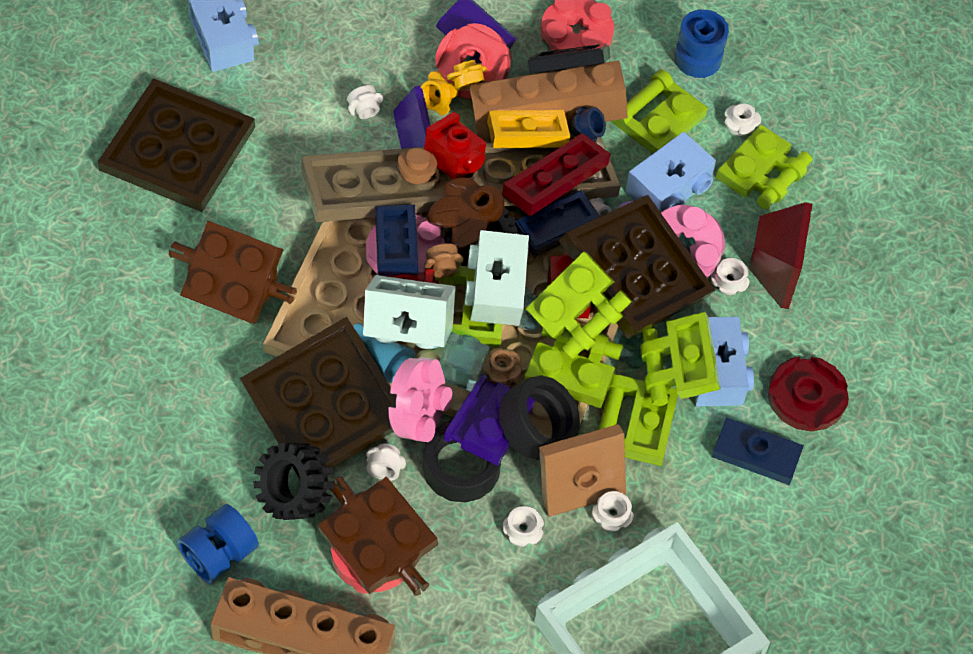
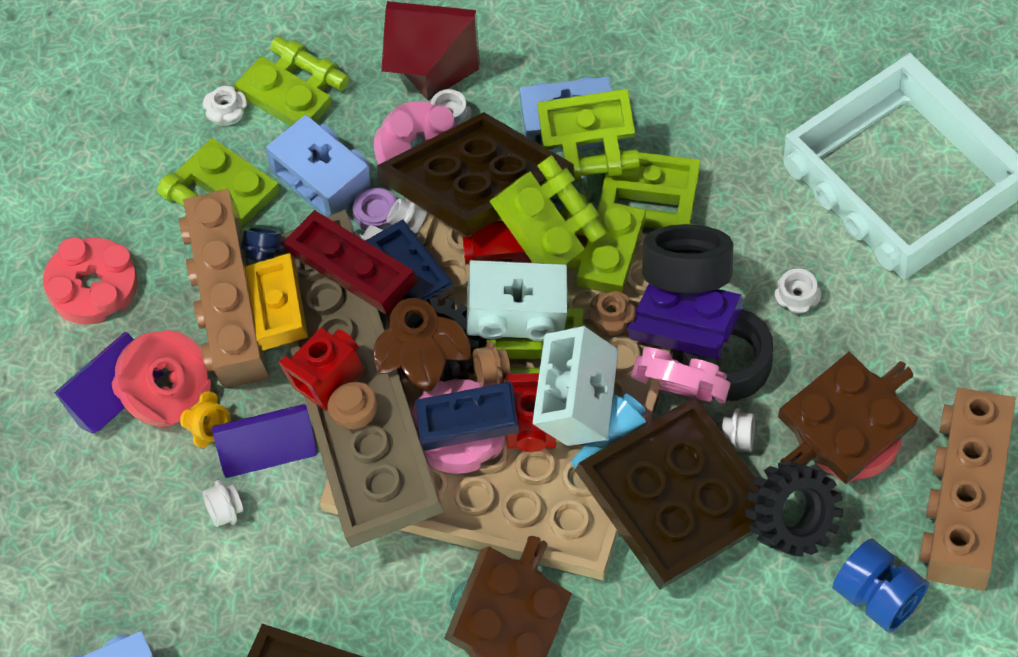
camera: 85 degrees left, 0 degrees up
(463, 360) = (625, 334): clear light blue plate -> none
(467, 74) = (196, 372): yellow plate -> none
(569, 58) = (163, 266): black tile -> none
(582, 469) = (738, 223): medium nougat plate -> none
(613, 501) = (765, 198): white plate -> none
(701, 43) = (124, 139): blue wheel -> none
(757, 451) = (668, 84): dark blue plate -> none
(802, 404) = (589, 53): dark red tile -> none

